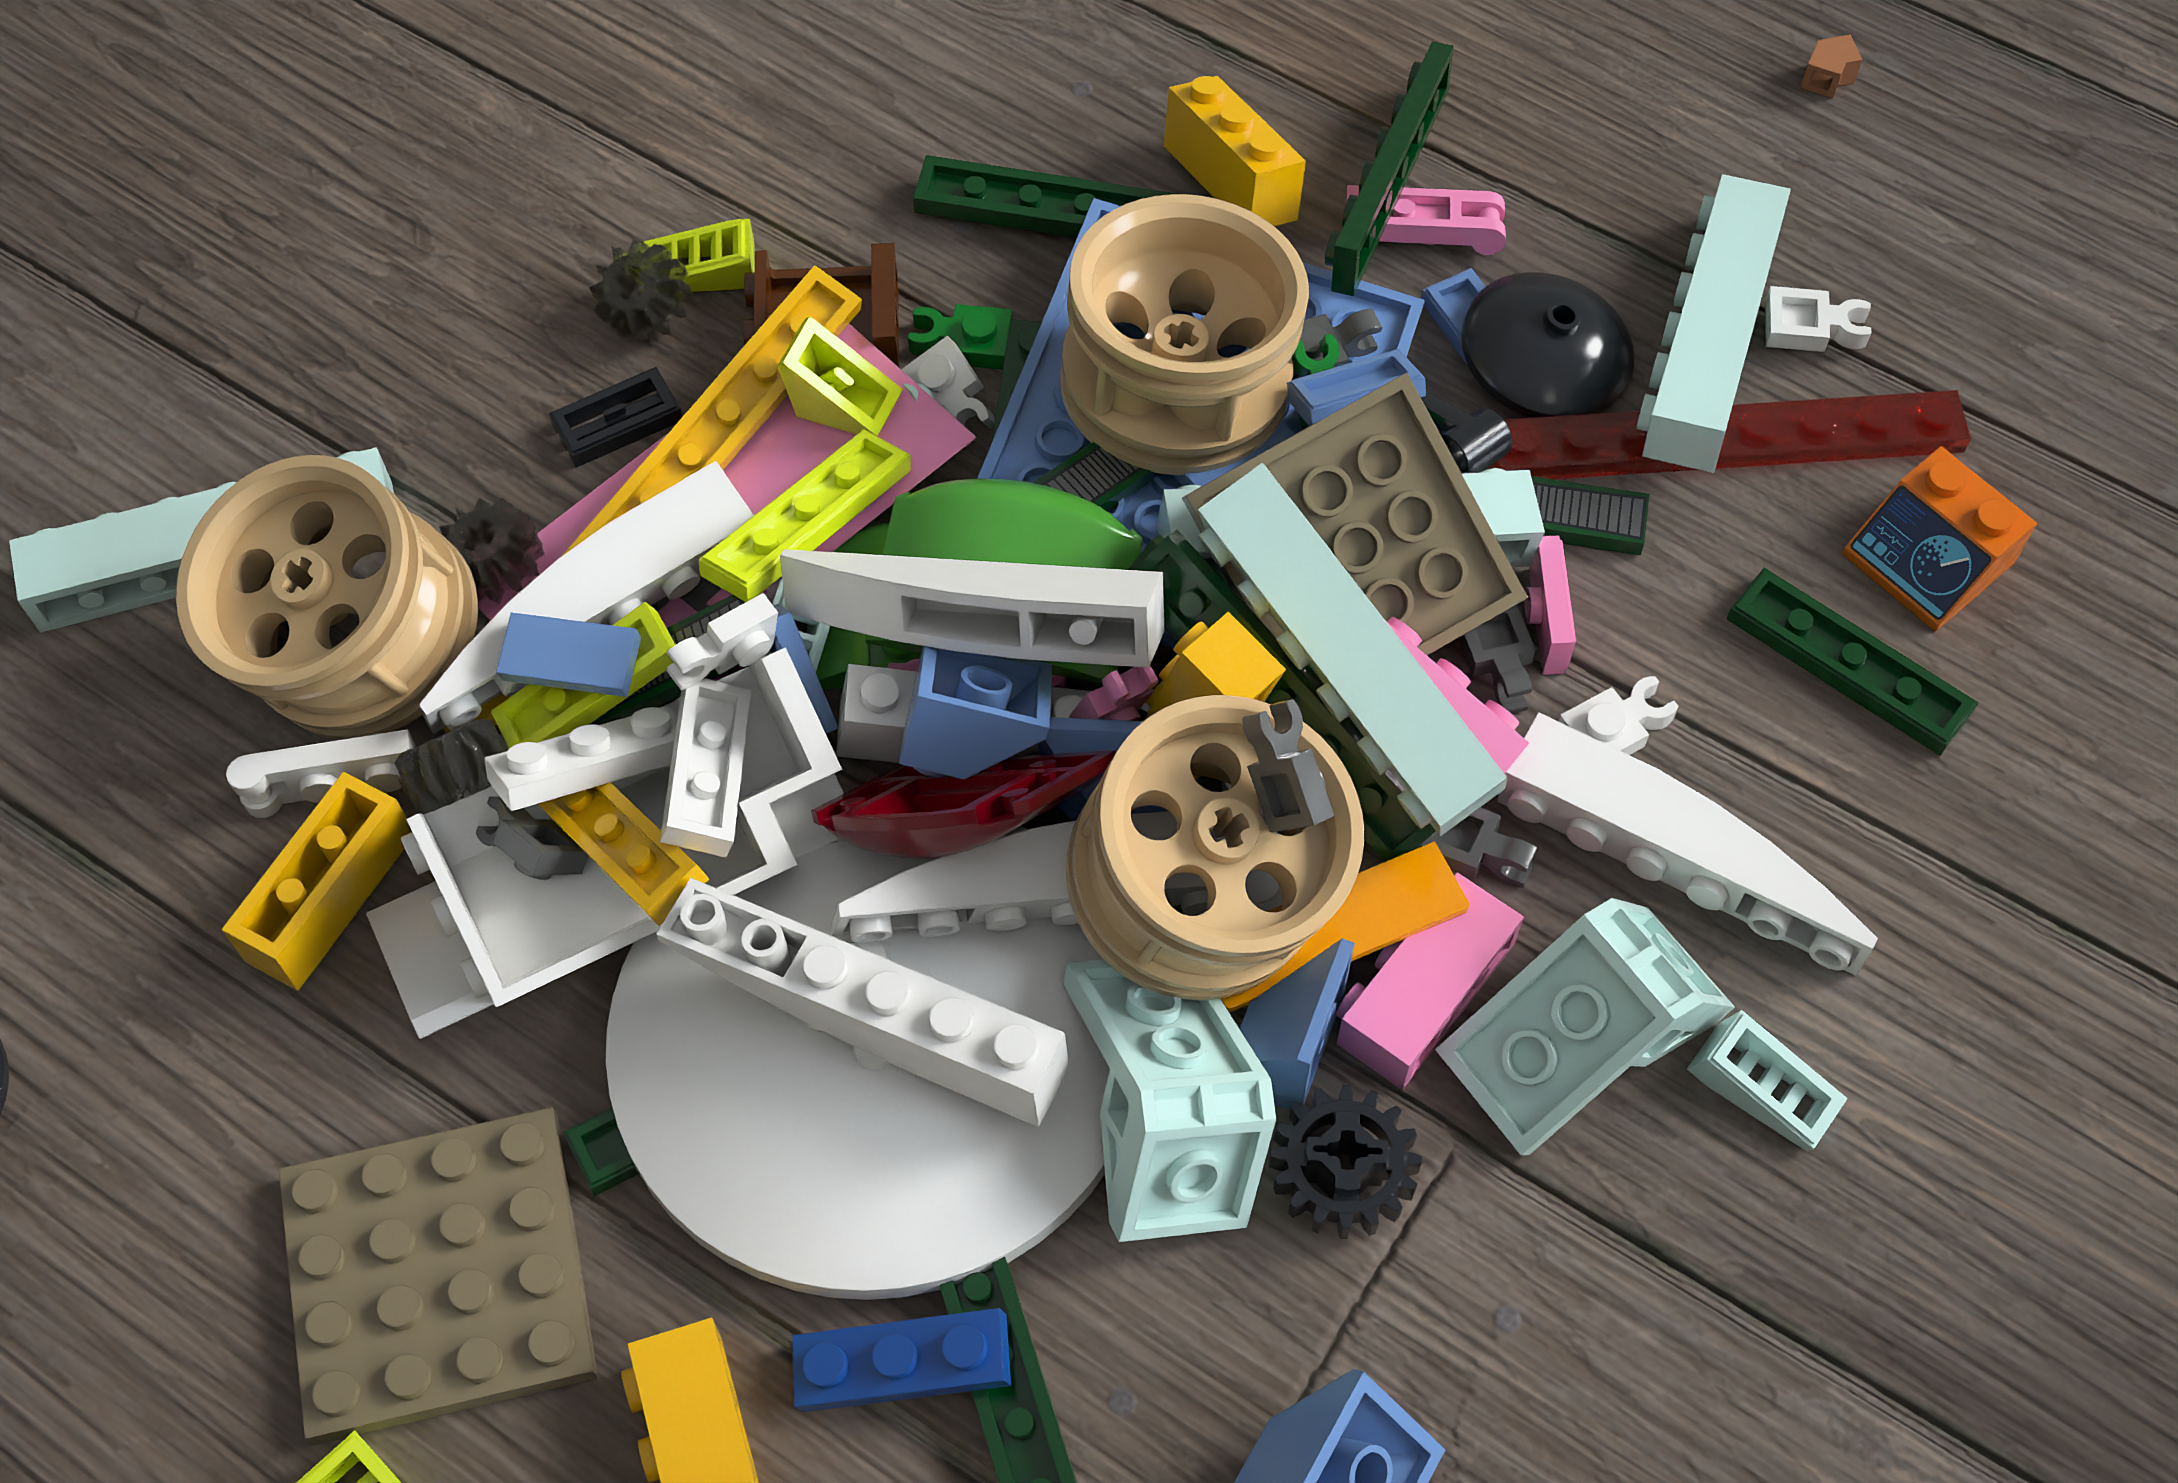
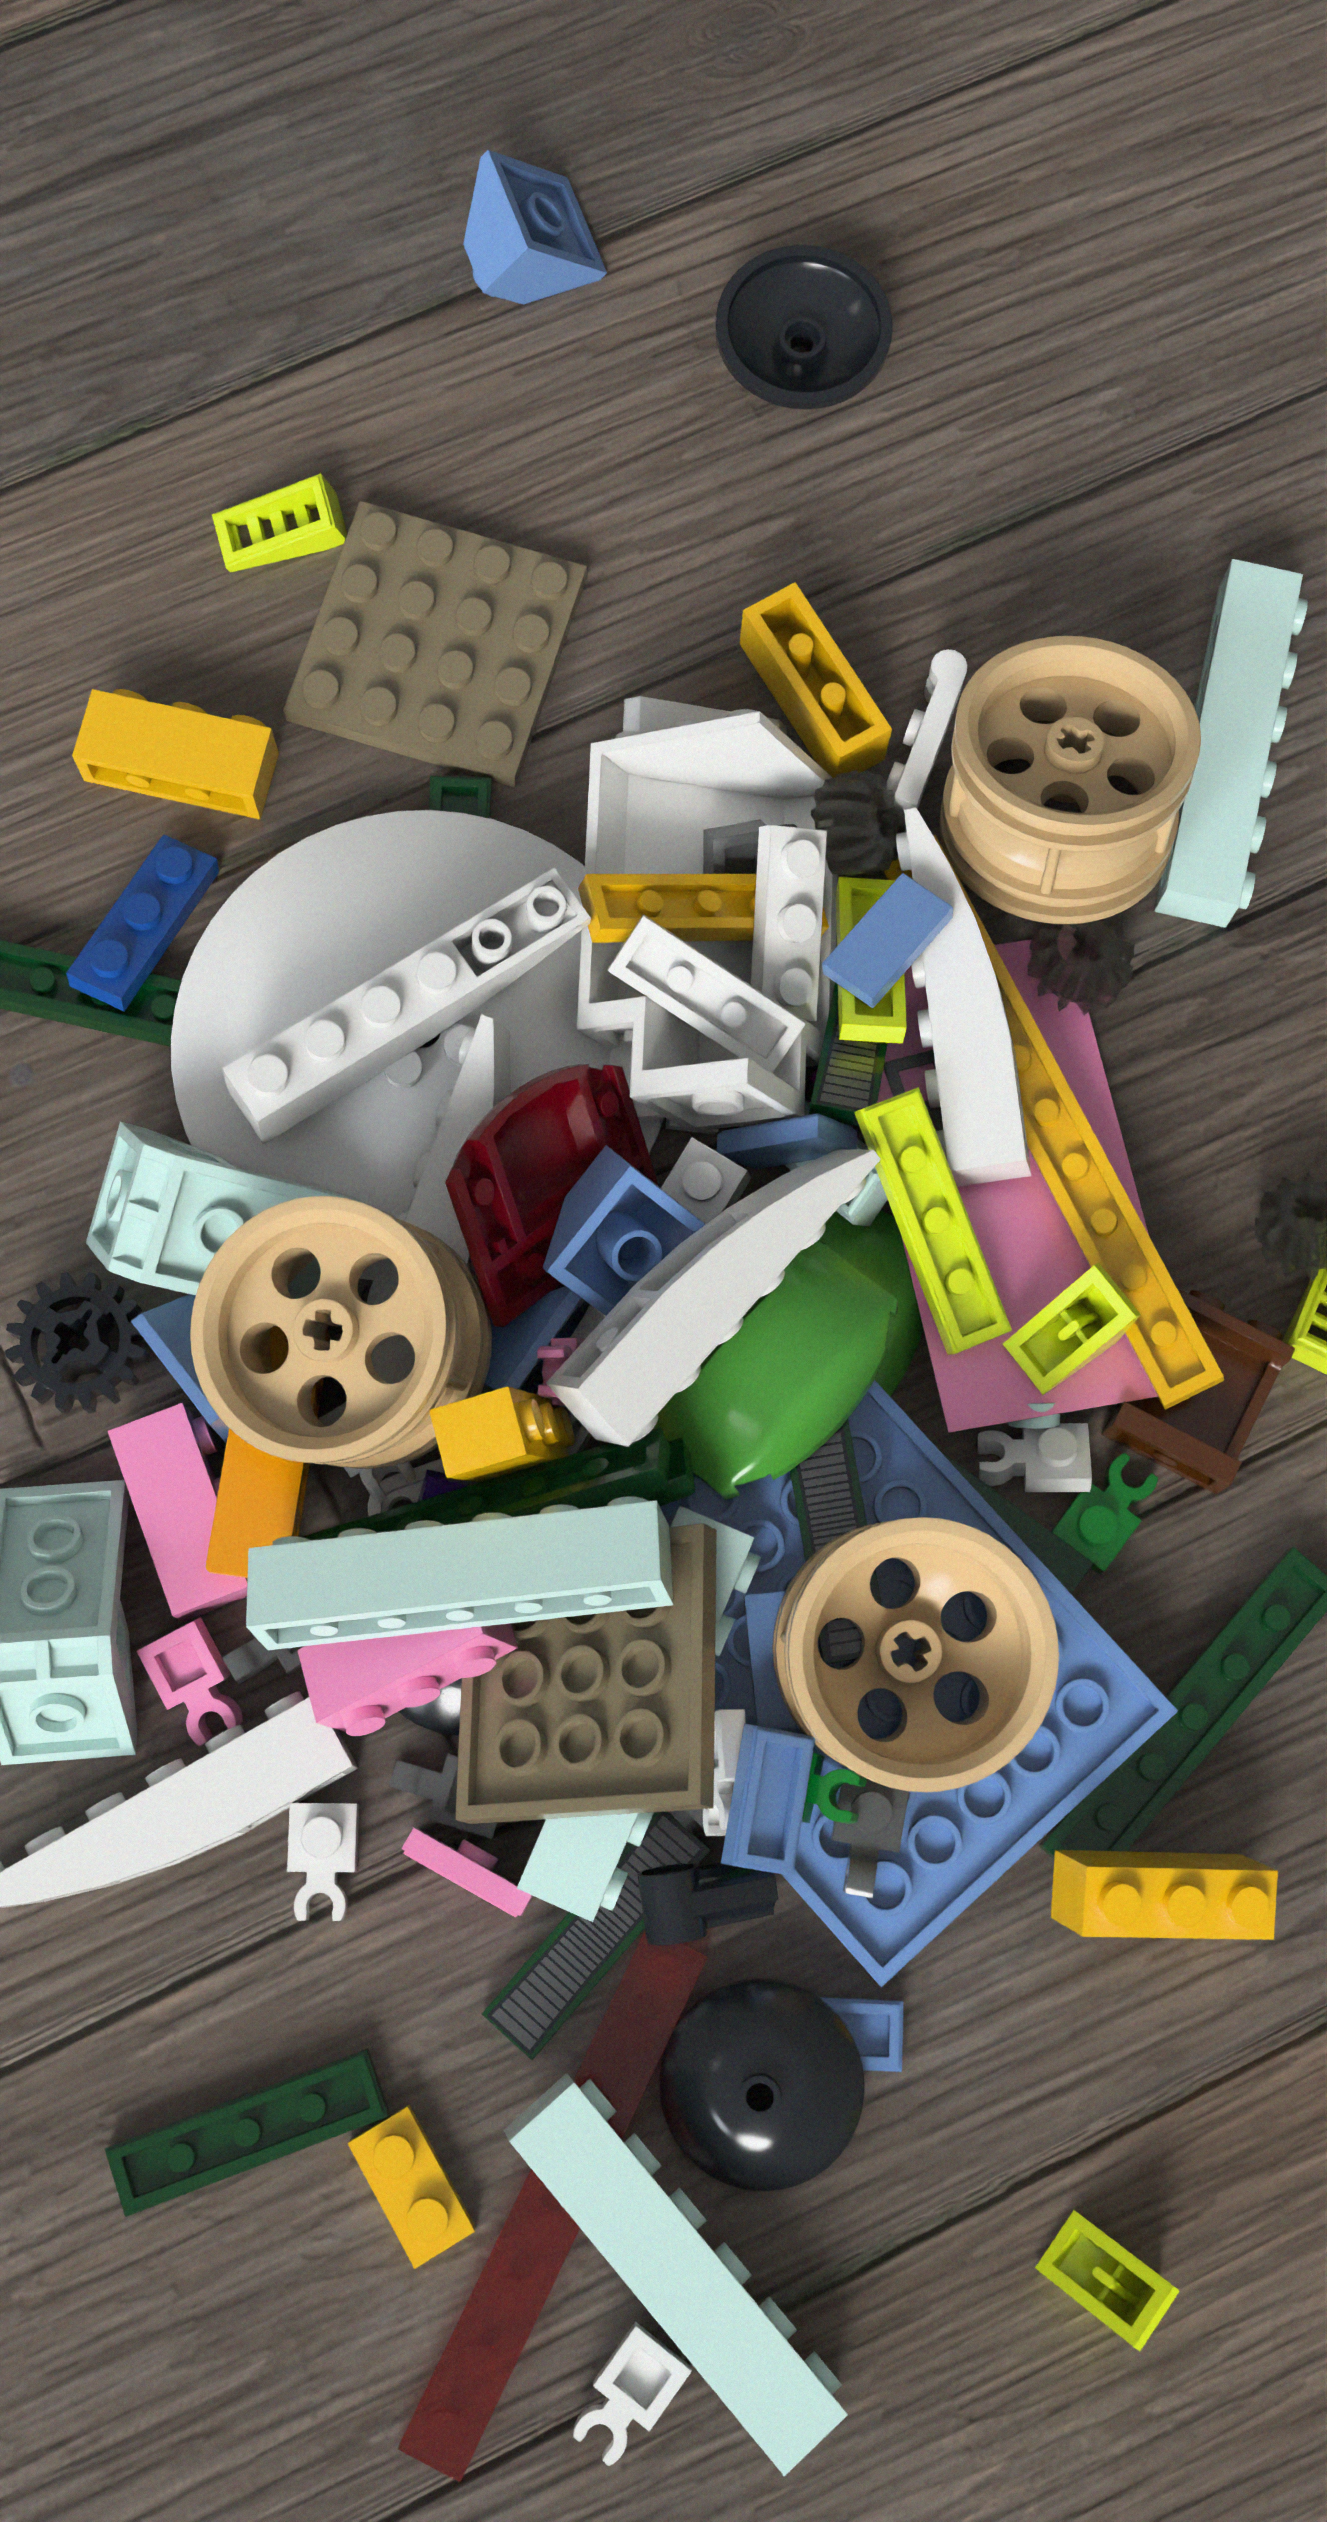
camera: 115 degrees right, 15 degrees up
(620, 423) = (1185, 1197): black tile -> none
(731, 639) = (805, 1073): white plate -> none
(1285, 779) = (320, 1396): dark grey plate -> none
(1386, 177) = (1074, 2074): dark green plate -> none
(1446, 218) = (990, 2063): bright pink plate -> none
(1514, 81) = (1107, 2280): none -> neon yellow slope
(1556, 892) = (186, 1670): none -> bright pink plate
(1796, 528) = (412, 2186): none -> yellow plate
(1940, 539) = (304, 2314): slope -> none

